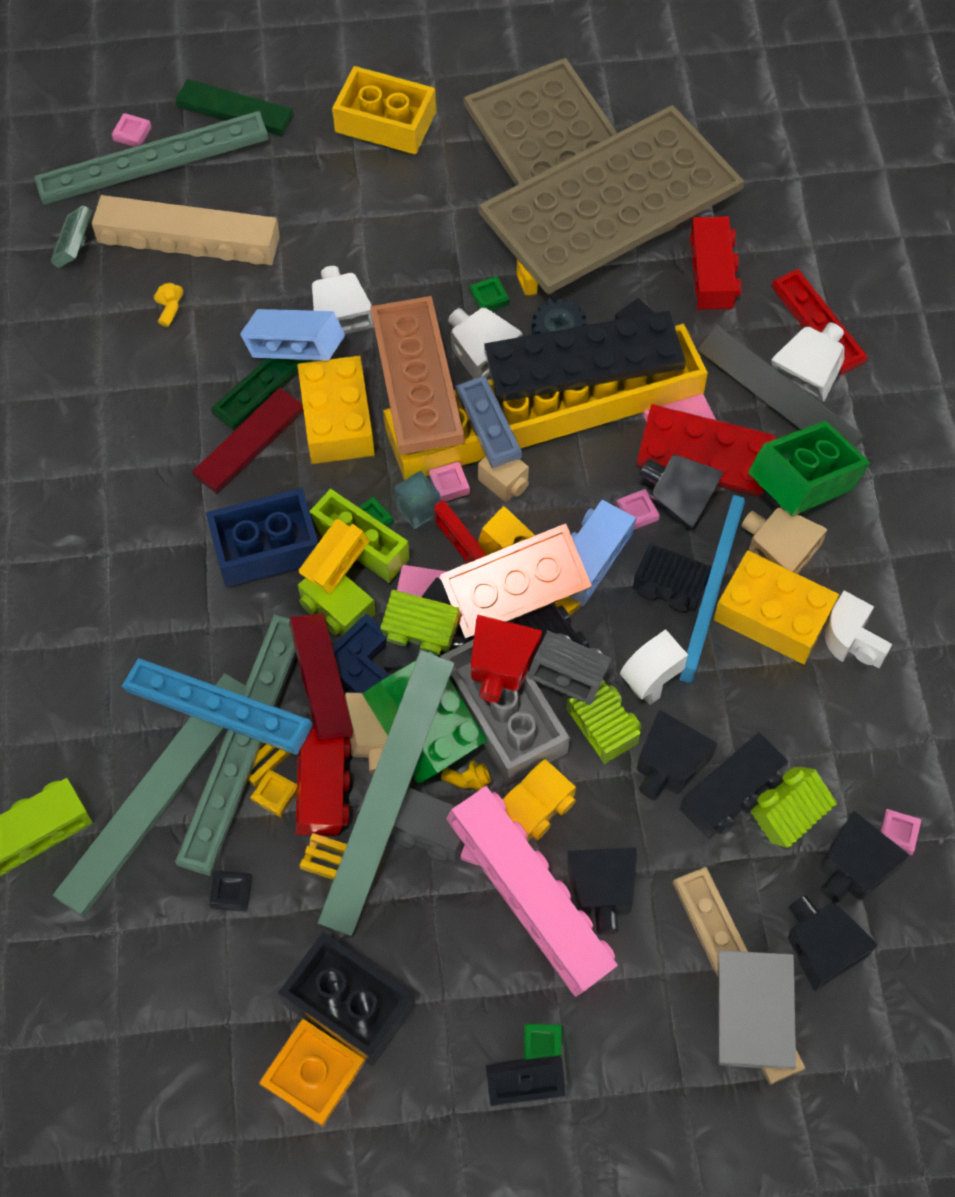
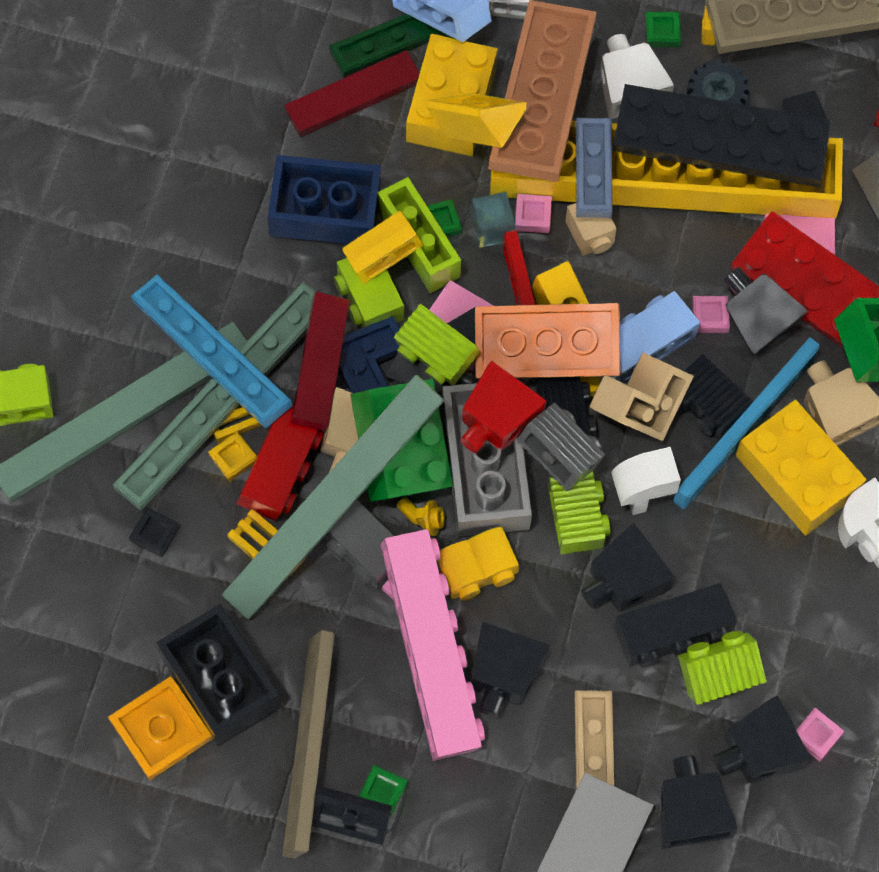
camera: 20 degrees right, 5 degrees up
(372, 415) = (477, 117): none -> yellow slope
(458, 1032) = (308, 745): none -> dark tan tile
(622, 597) = (648, 398): none -> tan brick

